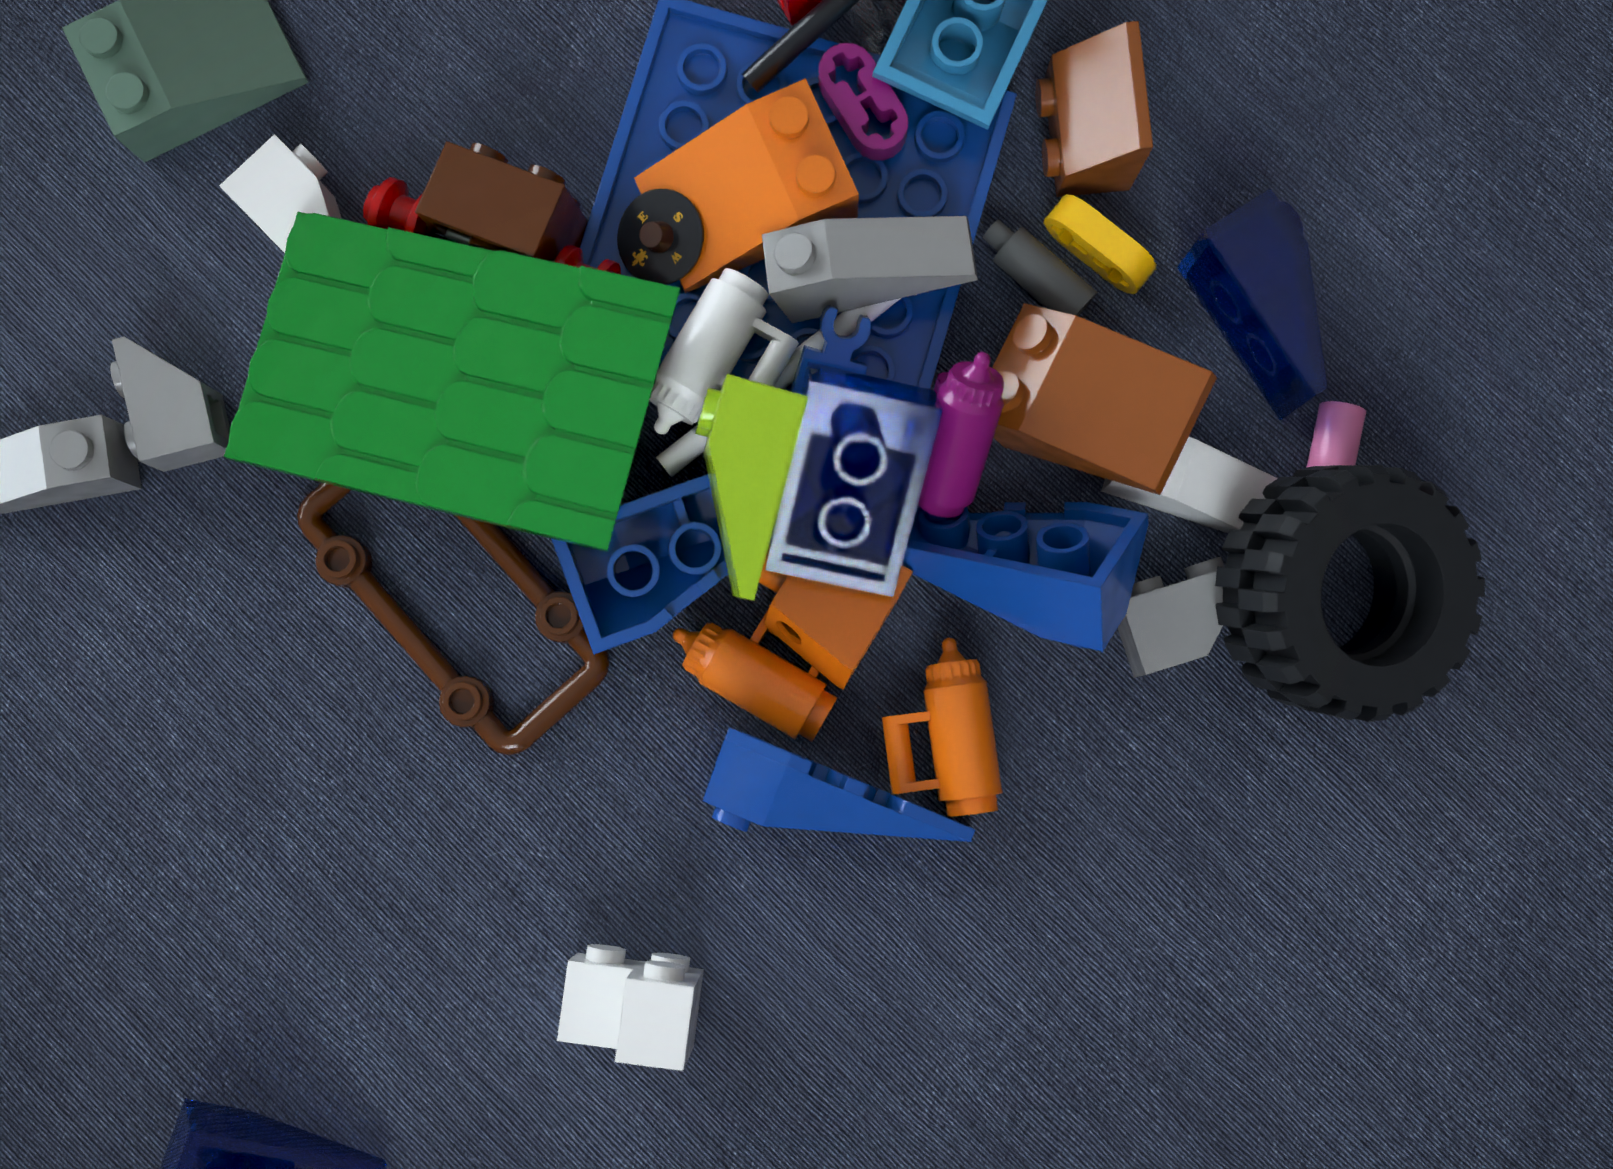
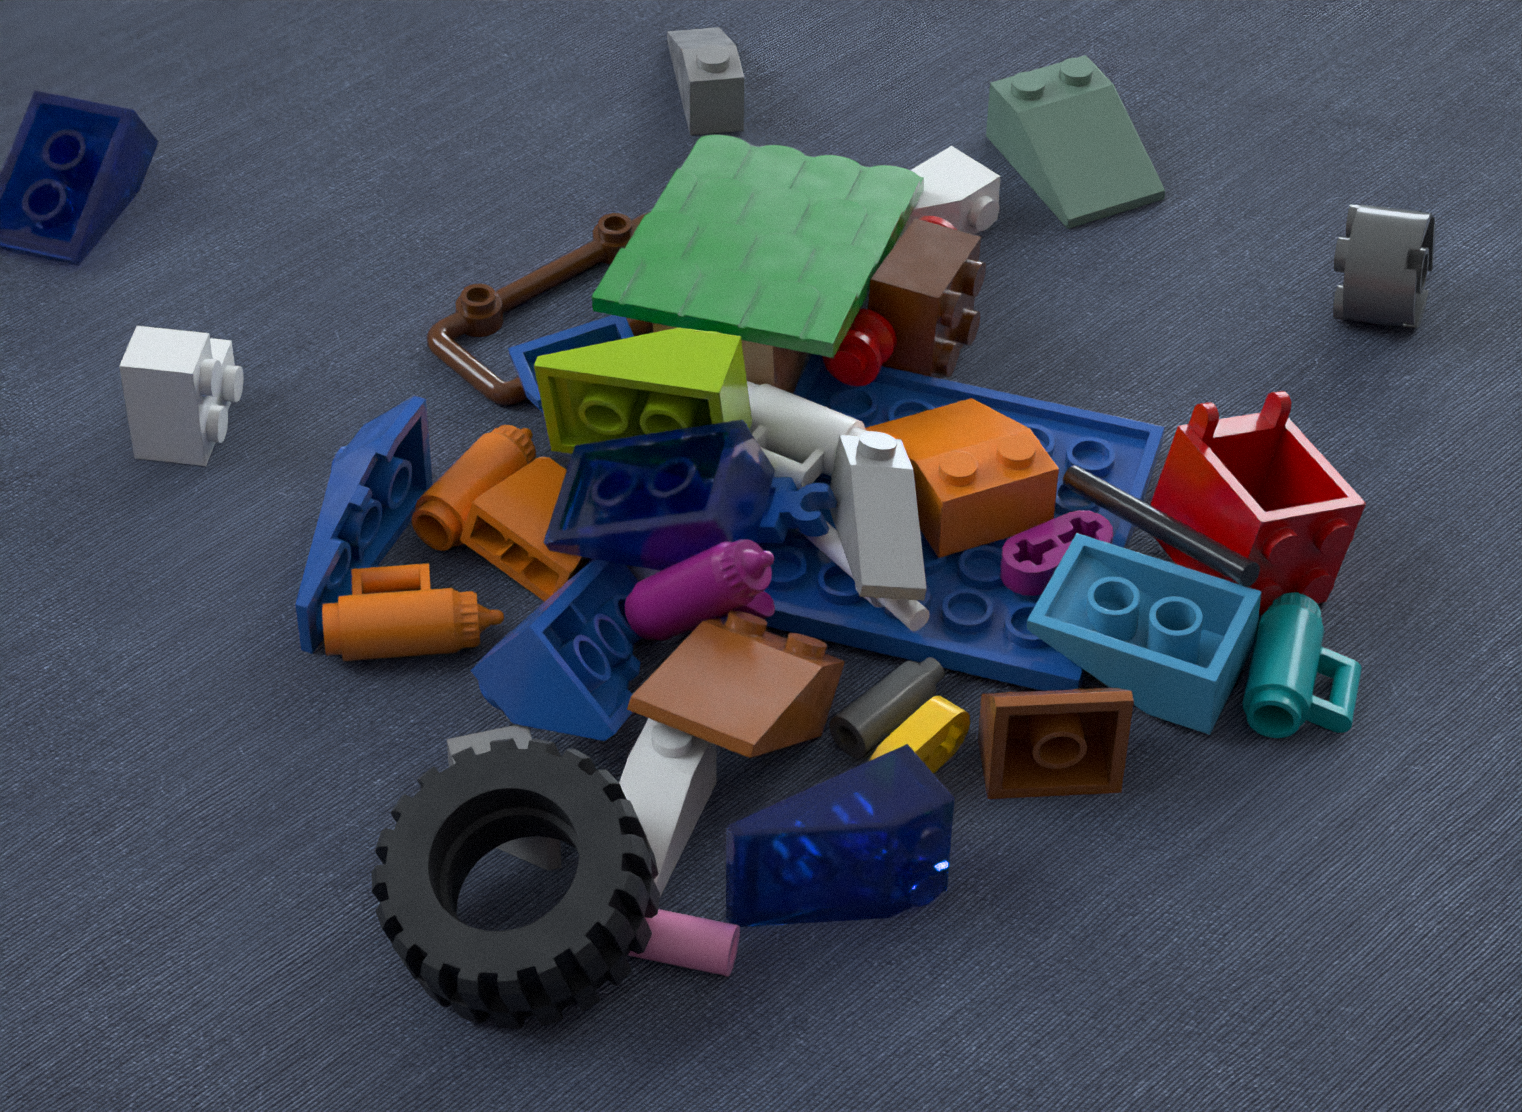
camera: 85 degrees right, 40 degrees down
(170, 413) = (765, 119): light grey slope -> none
(660, 236) = (911, 409): piece -> none

